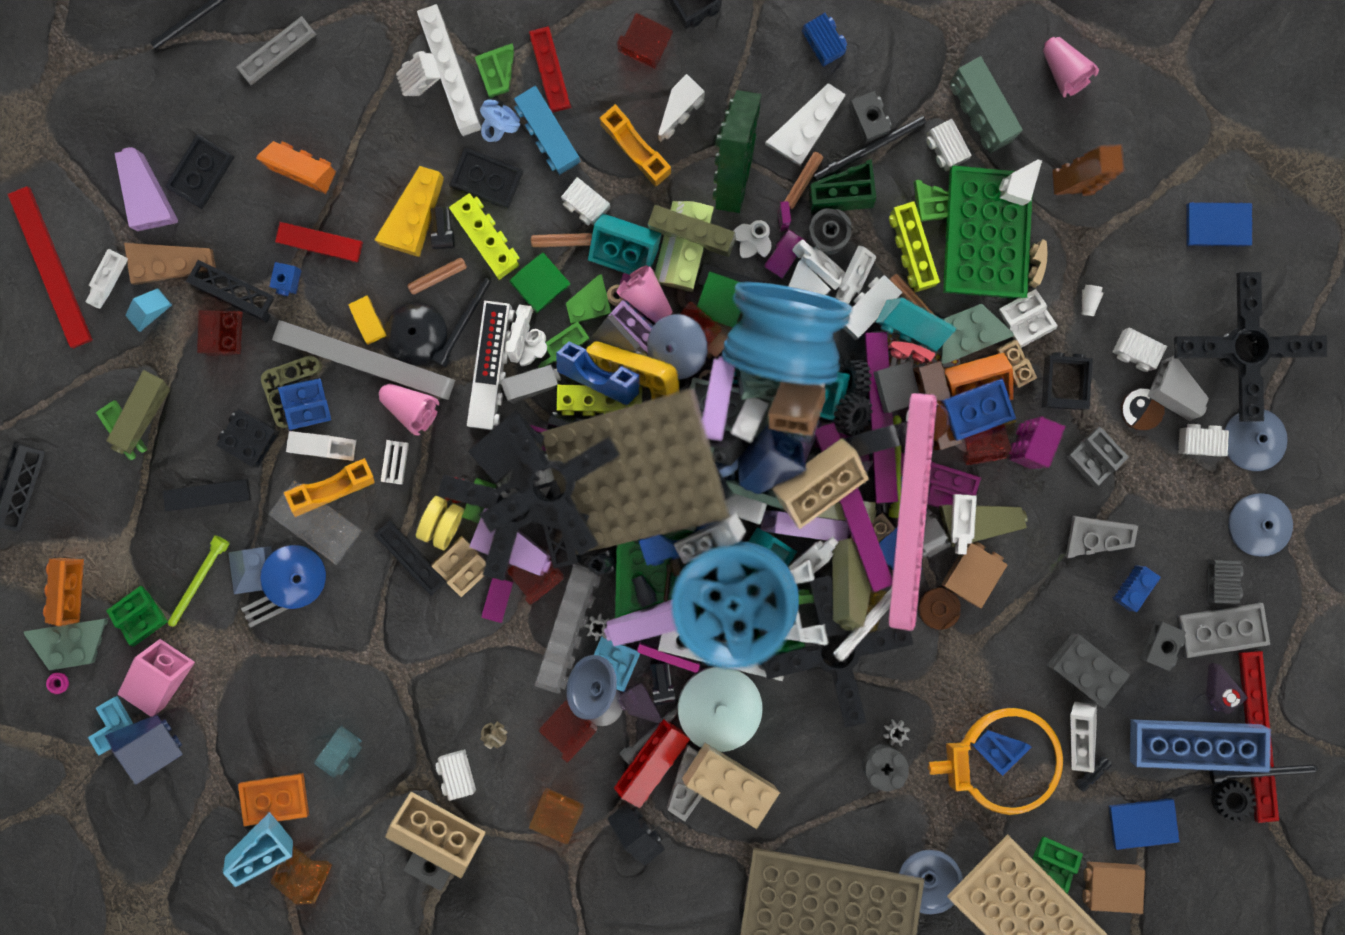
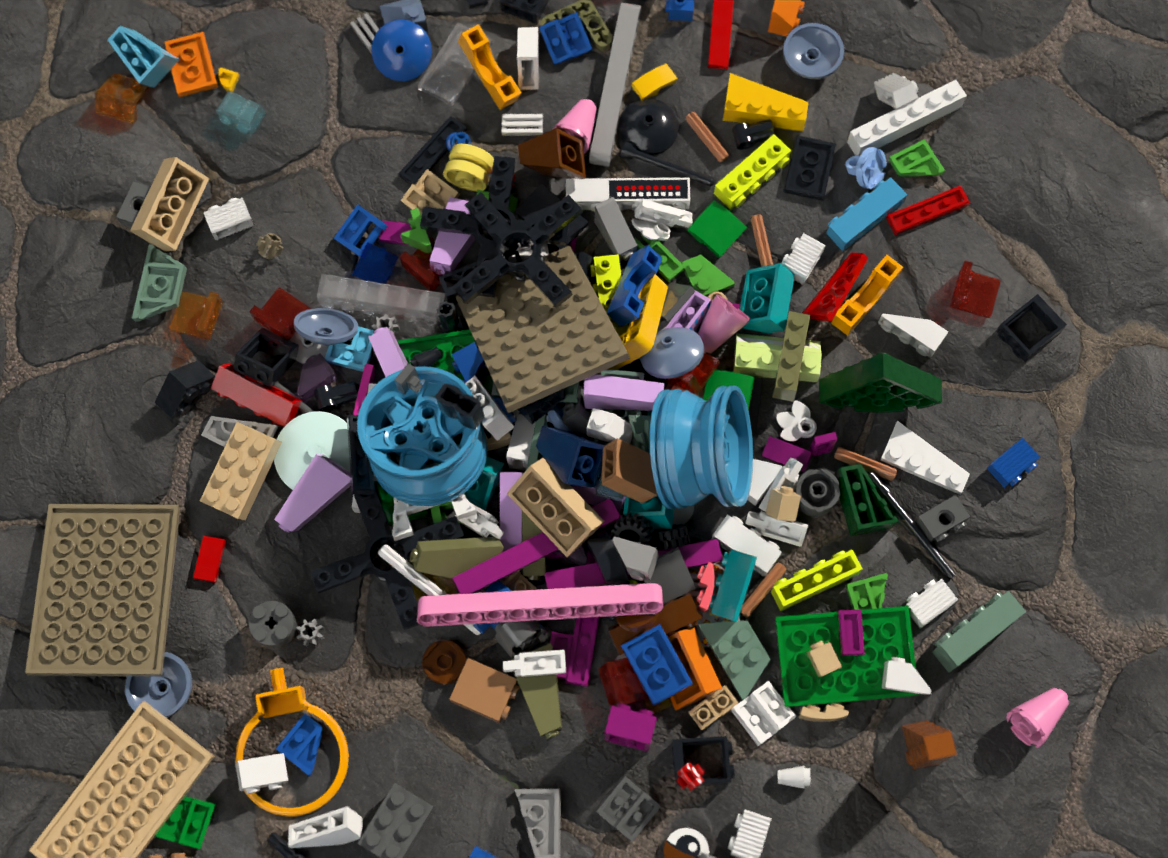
camera: 80 degrees right, 15 degrees down
(295, 761) = (228, 79): none -> yellow tile
(350, 141) = (814, 41): none -> sand blue dish
(406, 525) = (461, 138): none -> blue wheel
(443, 433) = (554, 155): none -> reddish brown slope
(486, 646) = (356, 226): none -> blue plate
(508, 585) = (416, 237): none -> bright green slope
(518, 850) = (159, 285): none -> sand green wing
(530, 630) = (375, 264): none -> clear blue piece
(602, 739) = (265, 341): none -> black window
(624, 175) = (834, 292): none -> red wing
(688, 612) = (408, 380): none -> dark grey tile
(727, 568) = (460, 406): none -> black brick
(760, 711) = (315, 490): none -> lavender slope
(764, 670) = (360, 469): none -> black tile
(809, 823) = (209, 559): none -> red tile
(839, 265) = (783, 504): none -> tan brick
(883, 413) = (637, 558): none -> light grey slope
(970, 223) = (851, 632): none -> magenta tile
(994, 253) = (823, 658): none -> tan brick
(1025, 791) = (261, 773): none -> white piece
(1088, 394) = (690, 776): none -> red gear

